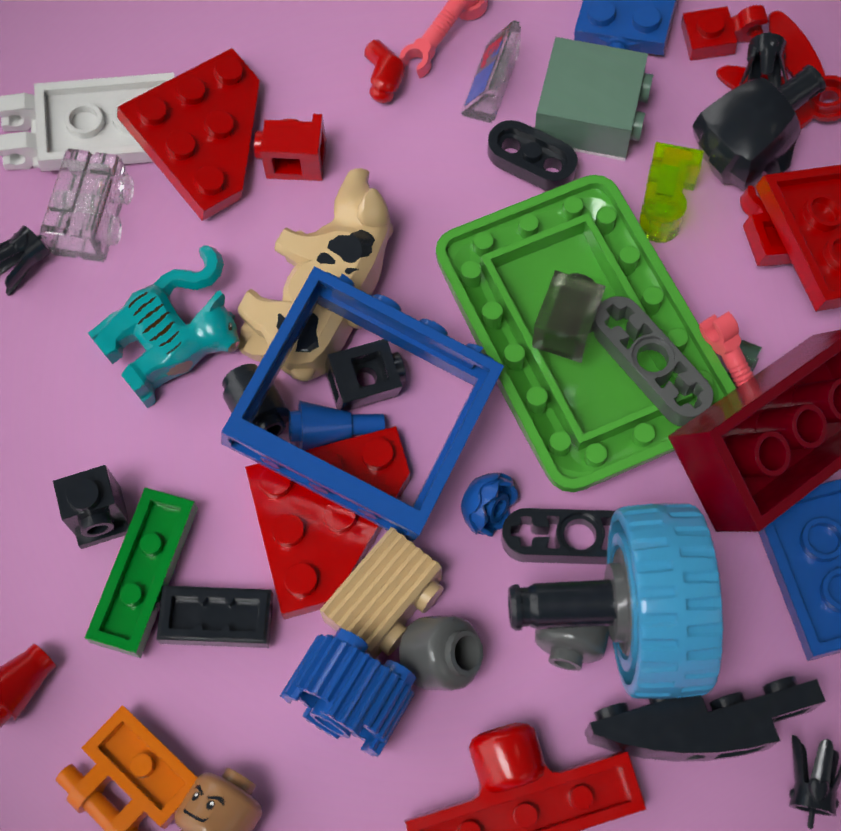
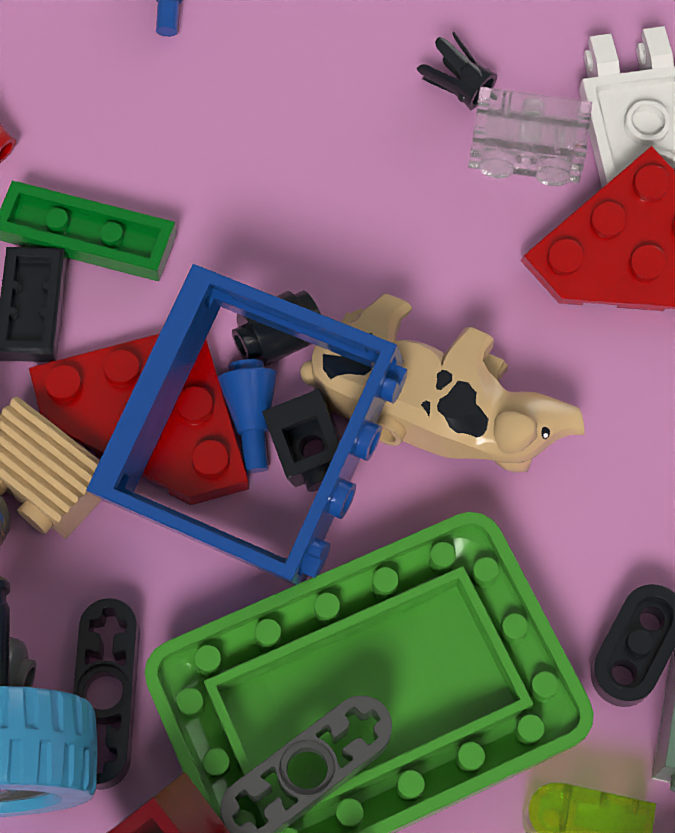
camera: 85 degrees right, 0 degrees up
(92, 506) = (156, 174): black brick -> none
(169, 342) = (364, 225): teal animal -> none
(292, 148) = (625, 352): red brick -> none
(488, 502) = (144, 583): blue plate -> none
(568, 315) = (364, 660): clear smoke brick -> none

